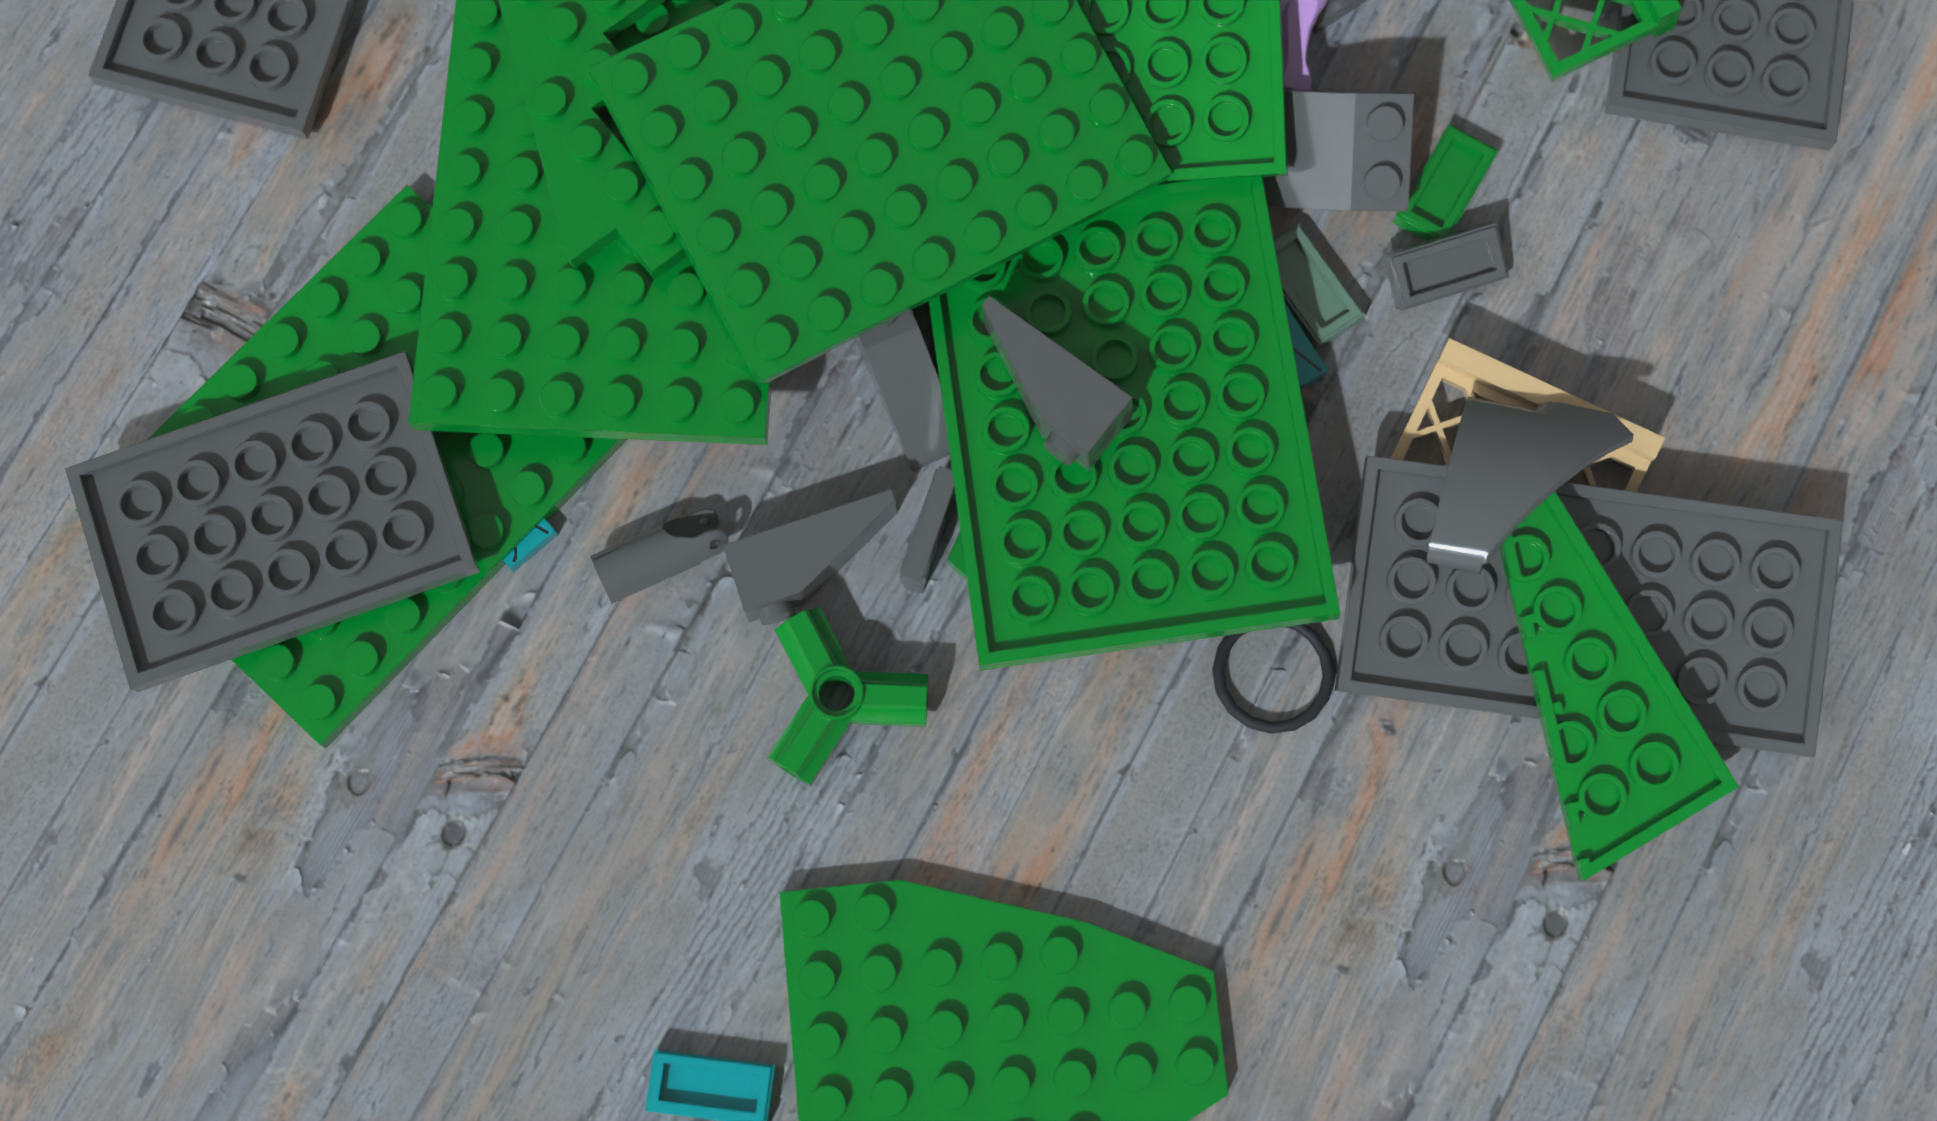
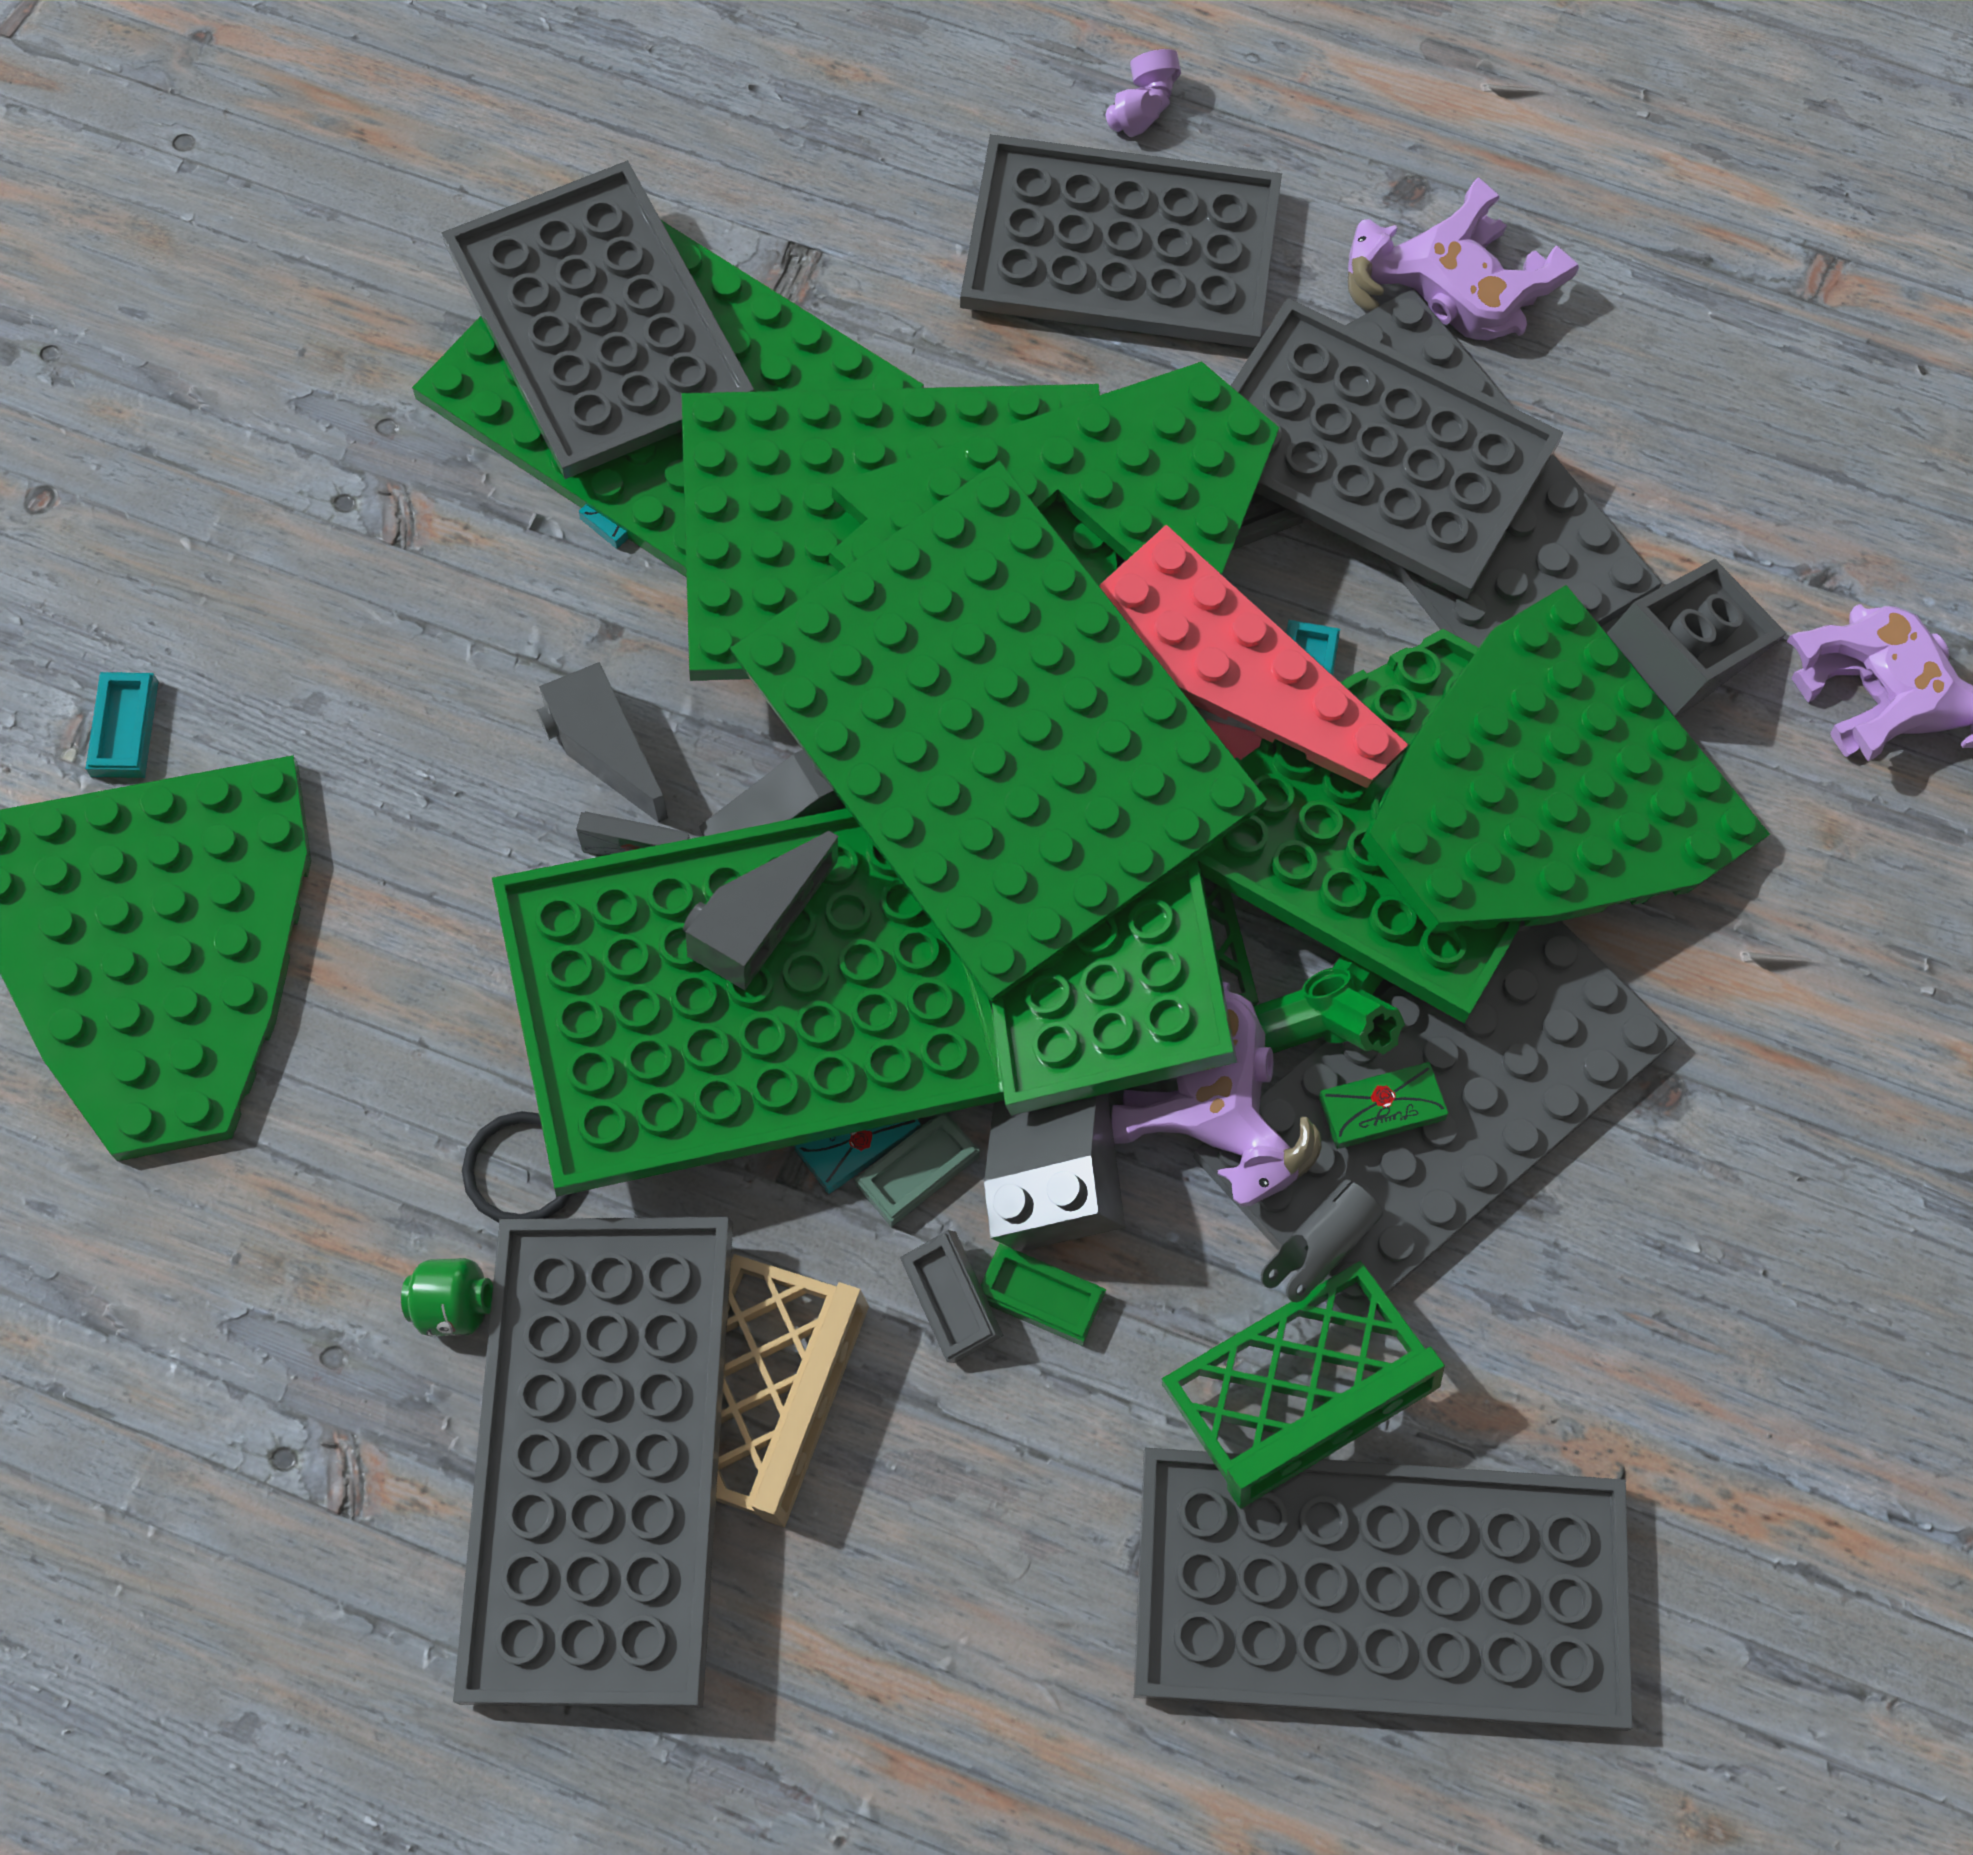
camera: 80 degrees right, 10 degrees down
(658, 554) = (596, 619): dark grey piece -> none
(820, 663) = (474, 808): green piece -> none
(1415, 746) = (446, 1297): none -> green head
(1506, 467) = (723, 1340): dark grey panel -> none
(1611, 716) = (483, 1474): green wing -> none

